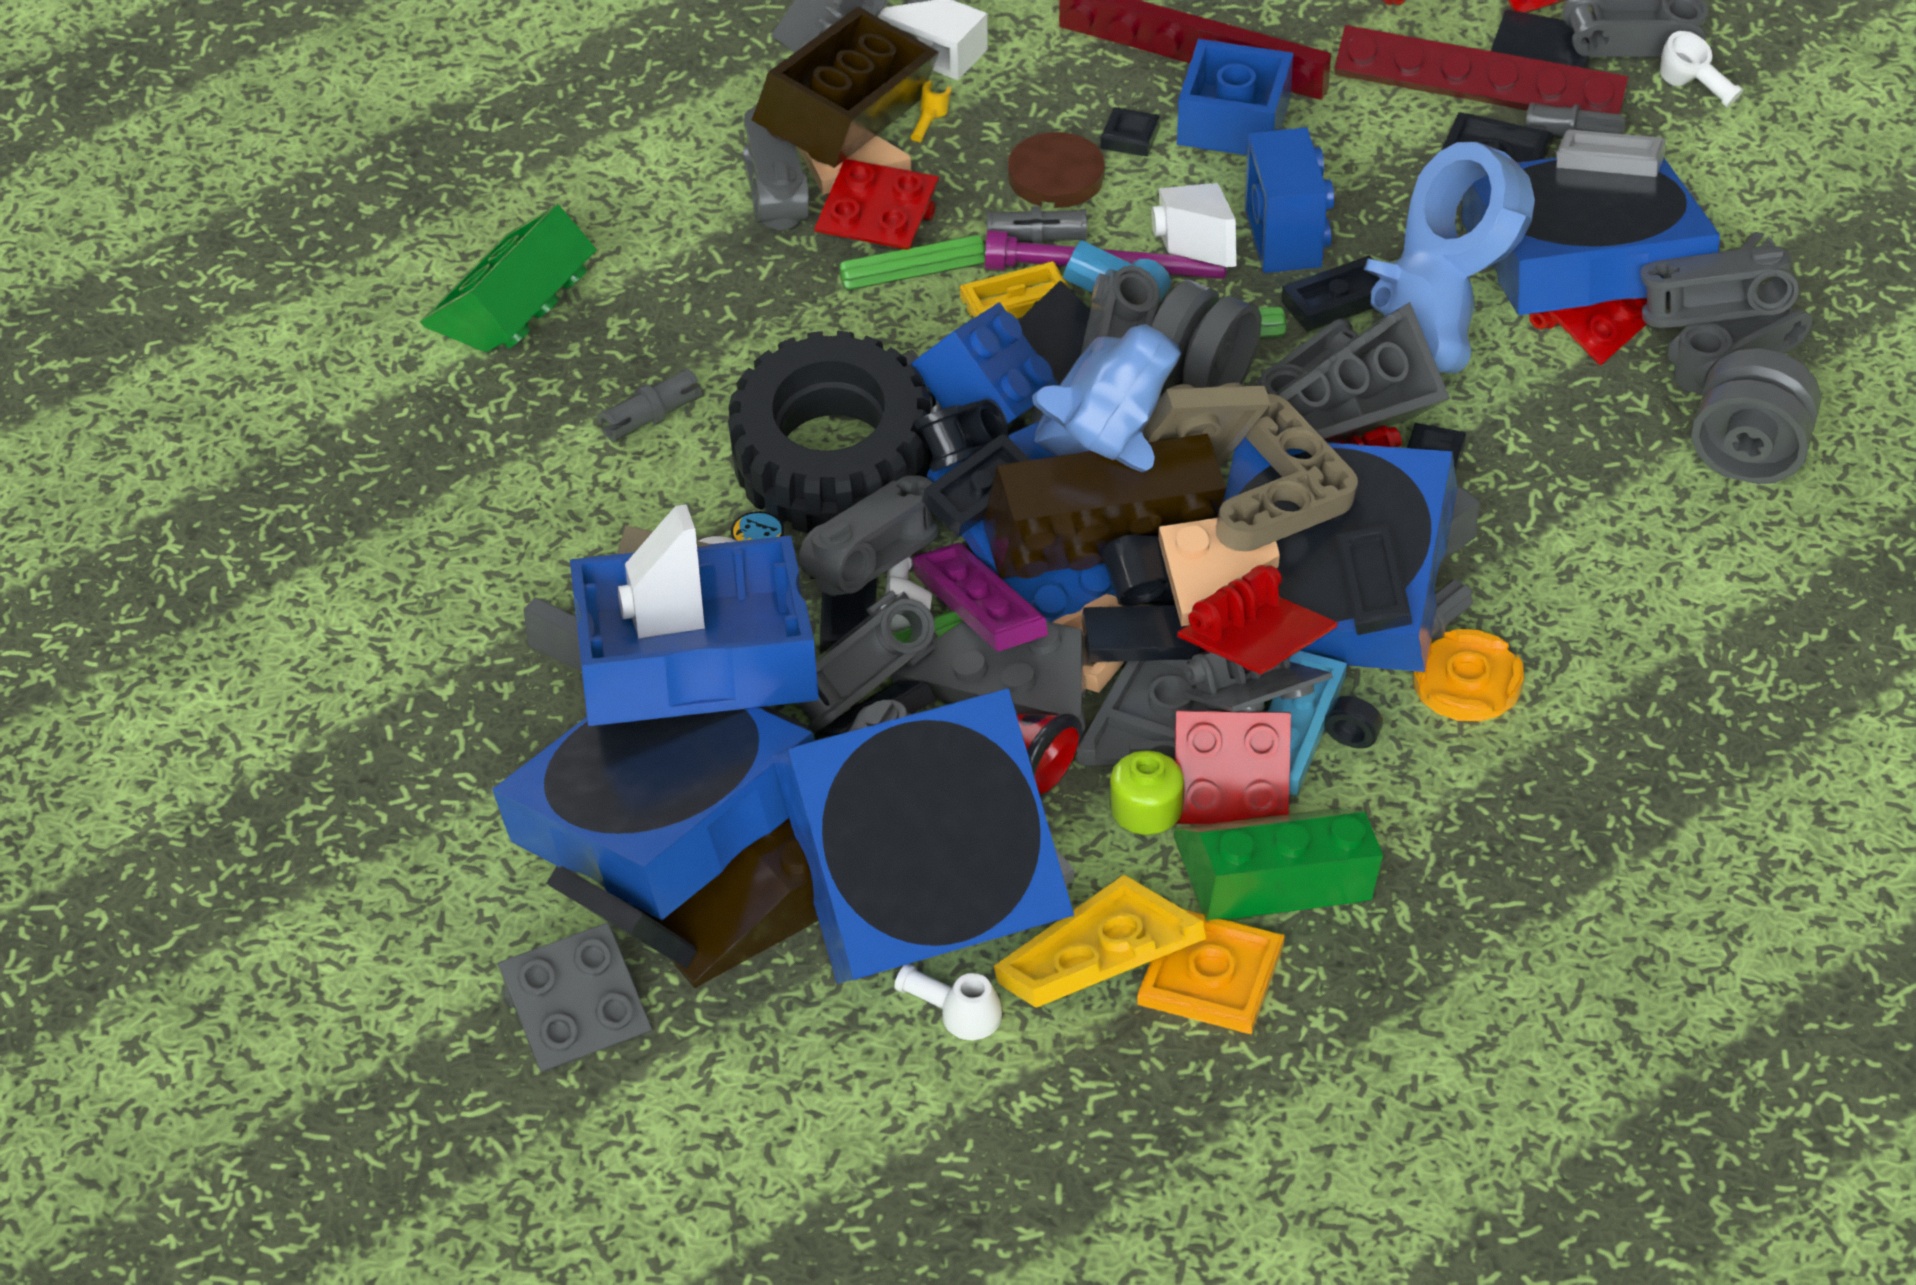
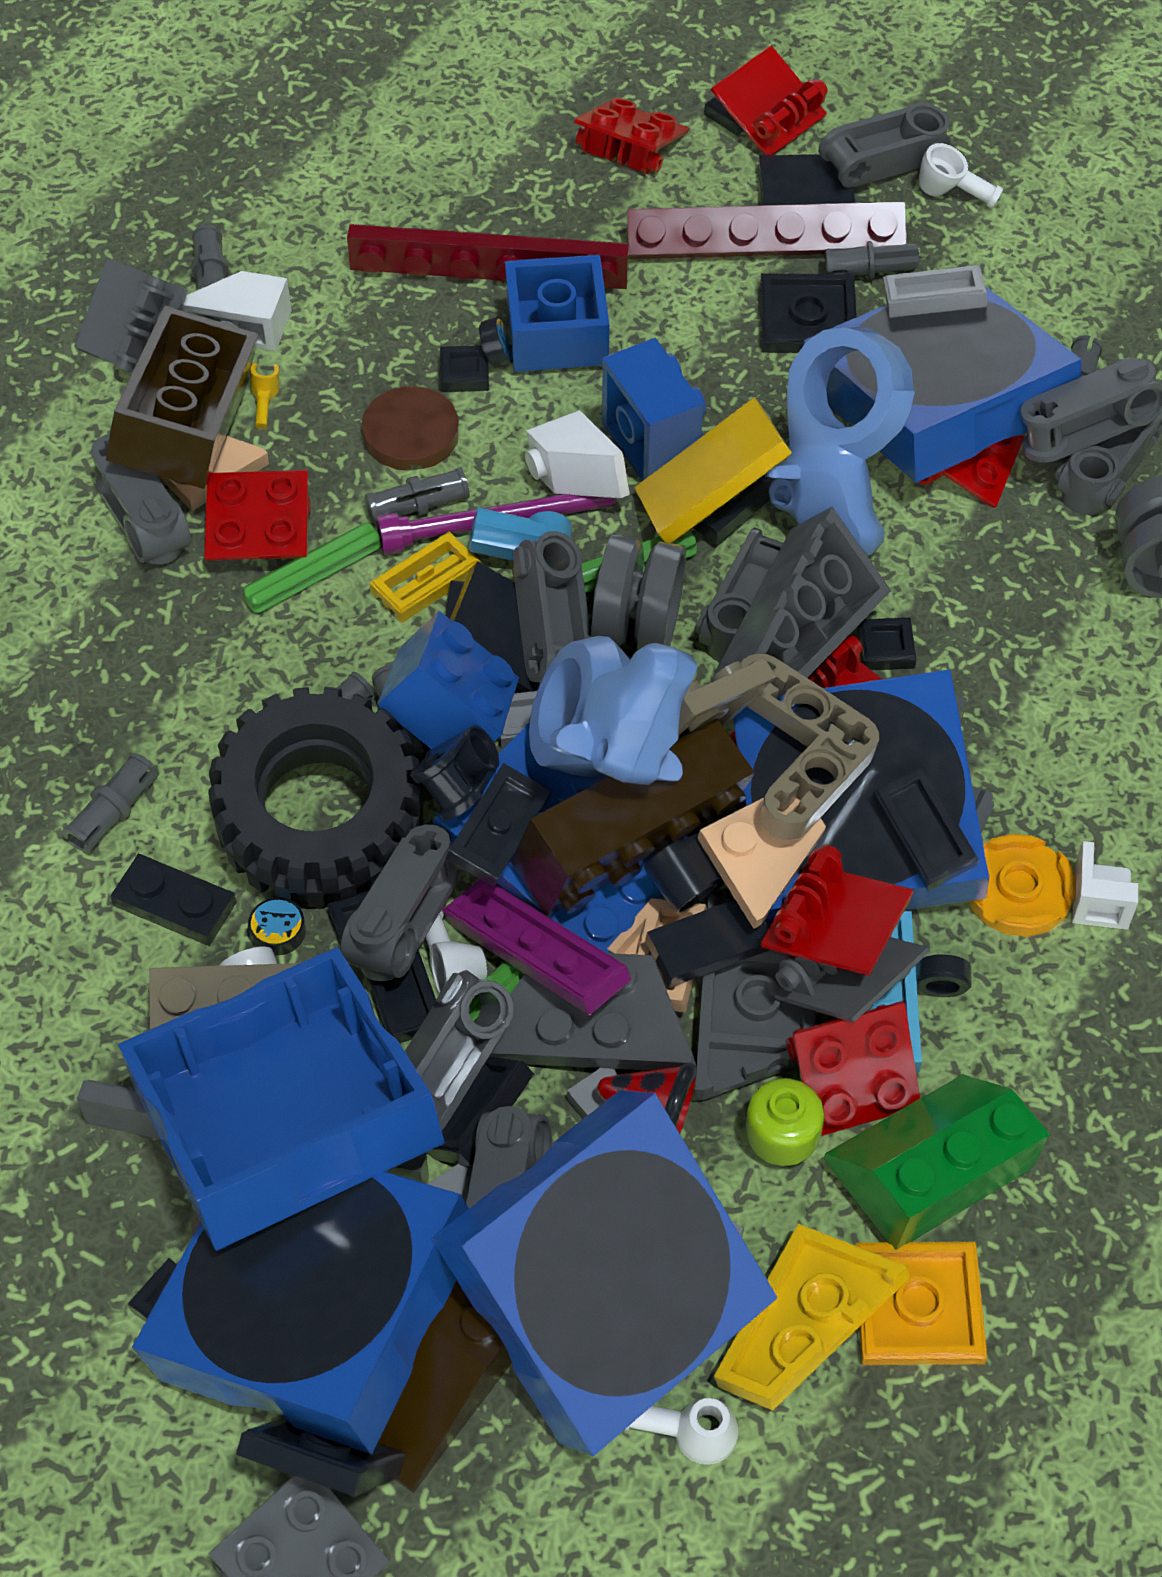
camera: 20 degrees left, 10 degrees up
(664, 483) = (173, 899): none -> black plate
(664, 580) = (228, 1041): white slope -> none
(1165, 112) = (495, 342): none -> black tile
(1319, 257) = (712, 471): none -> yellow tile
(1541, 700) = (1102, 892): none -> white panel

